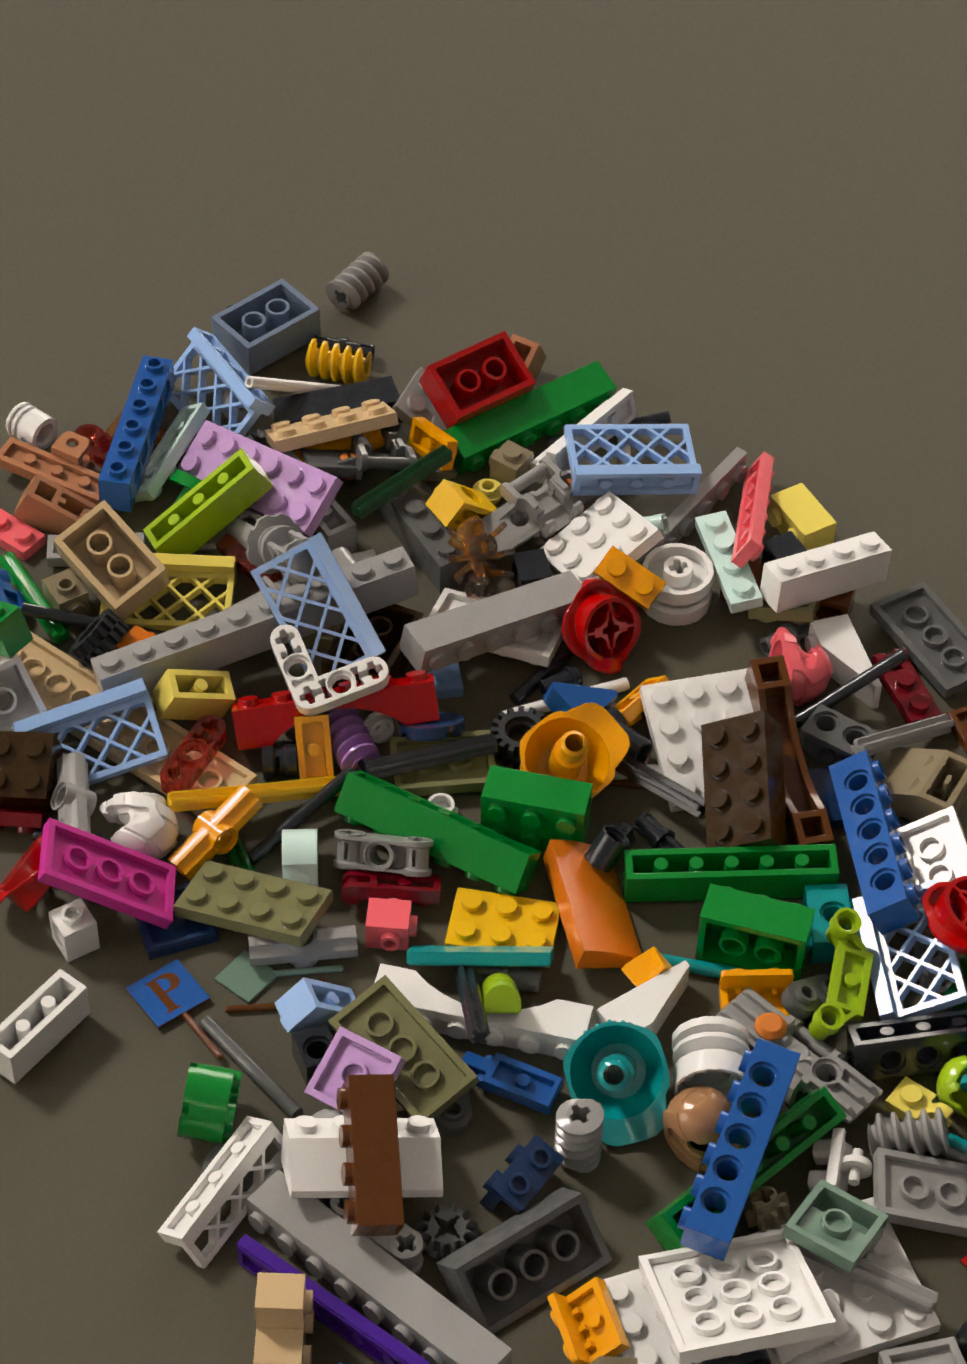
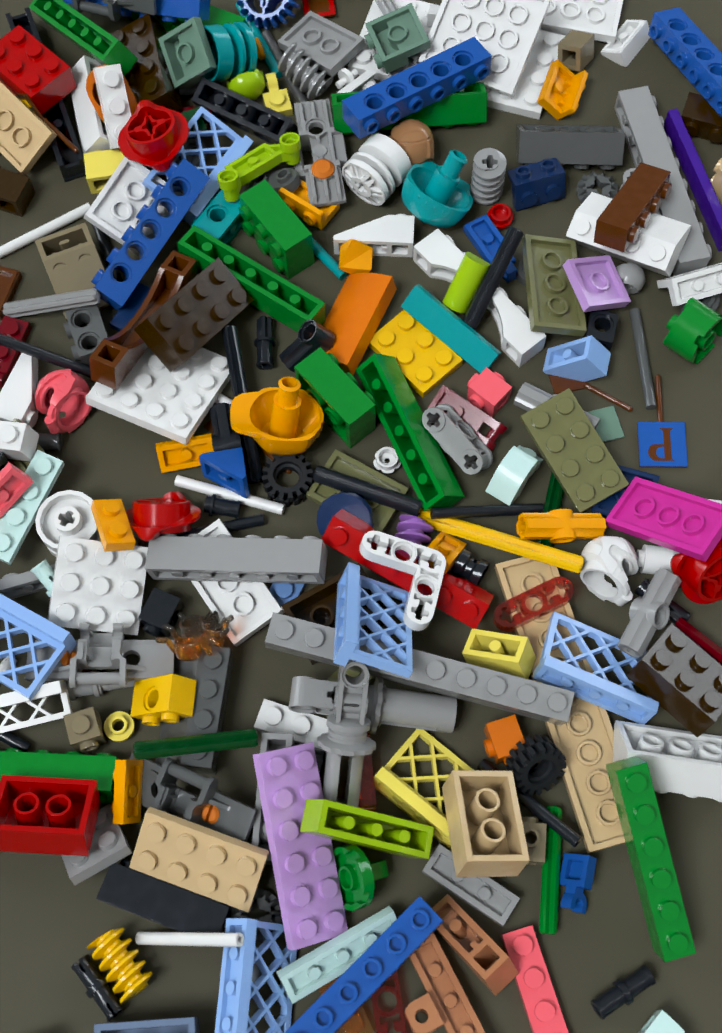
camera: 140 degrees left, 20 degrees up
(534, 1122) = (500, 215): none -> red plate

